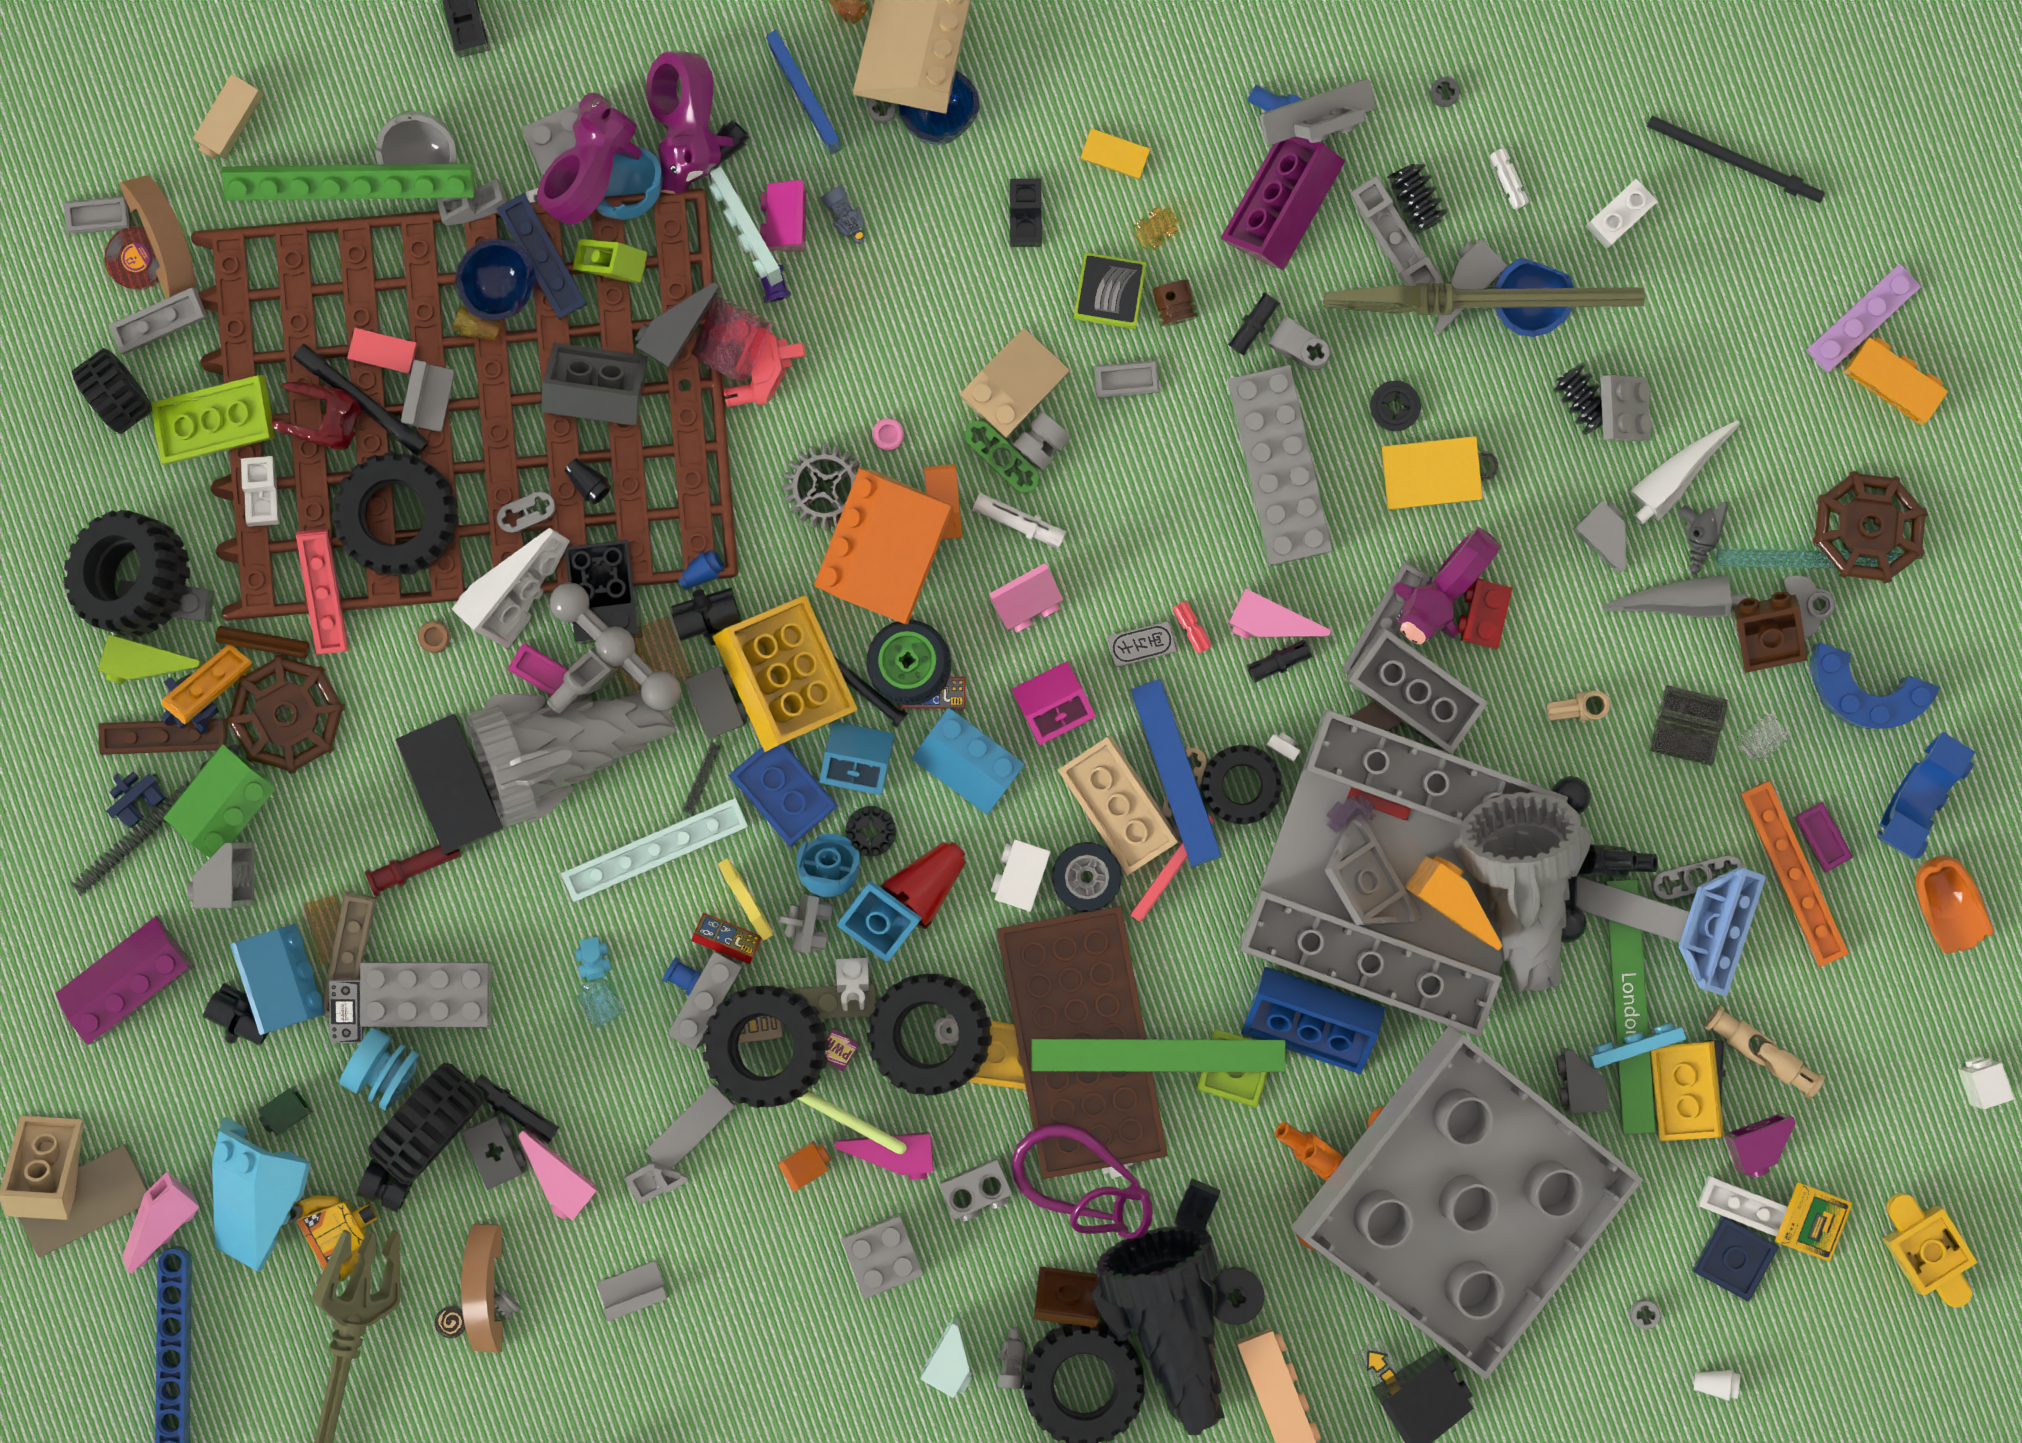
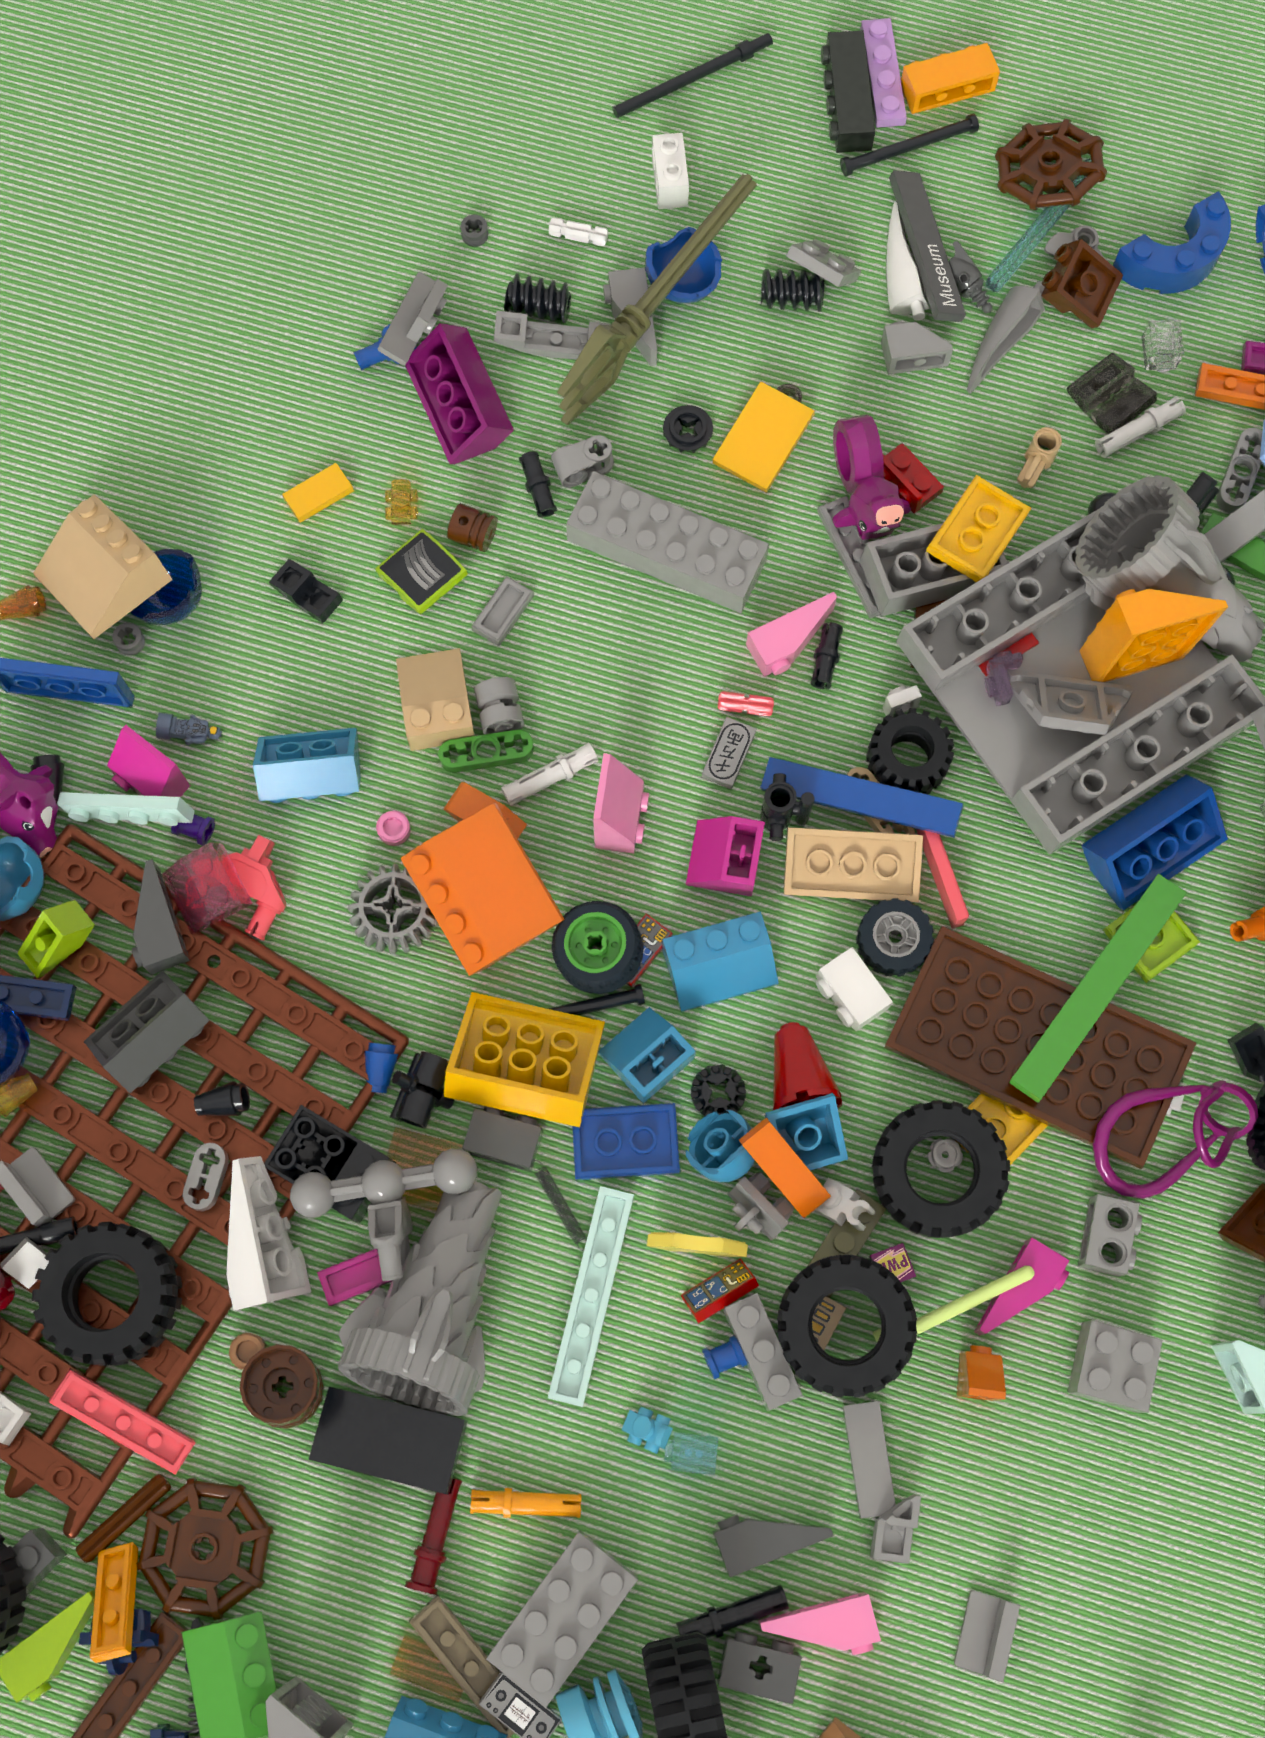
camera: 55 degrees left, 15 degrees down
(373, 437) = (24, 1262): none -> white tile
(427, 664) = (266, 1373): none -> reddish brown wheel
(476, 905) = (525, 1503): none -> light orange pin
(576, 1091) = (756, 1542): none -> dark grey slope
(843, 922) = (784, 1168): none -> orange tile
(887, 330) = (307, 765): none -> slope
(1132, 708) = (781, 804): none -> black pin
(1464, 707) = (978, 529): none -> yellow tile
(1673, 769) = (1149, 422): none -> white pin
(1709, 479) = (927, 246): none -> dark grey tile
(1805, 393) = (969, 124): none -> black bar
(1817, 305) = (849, 91): none -> pearl dark grey brick

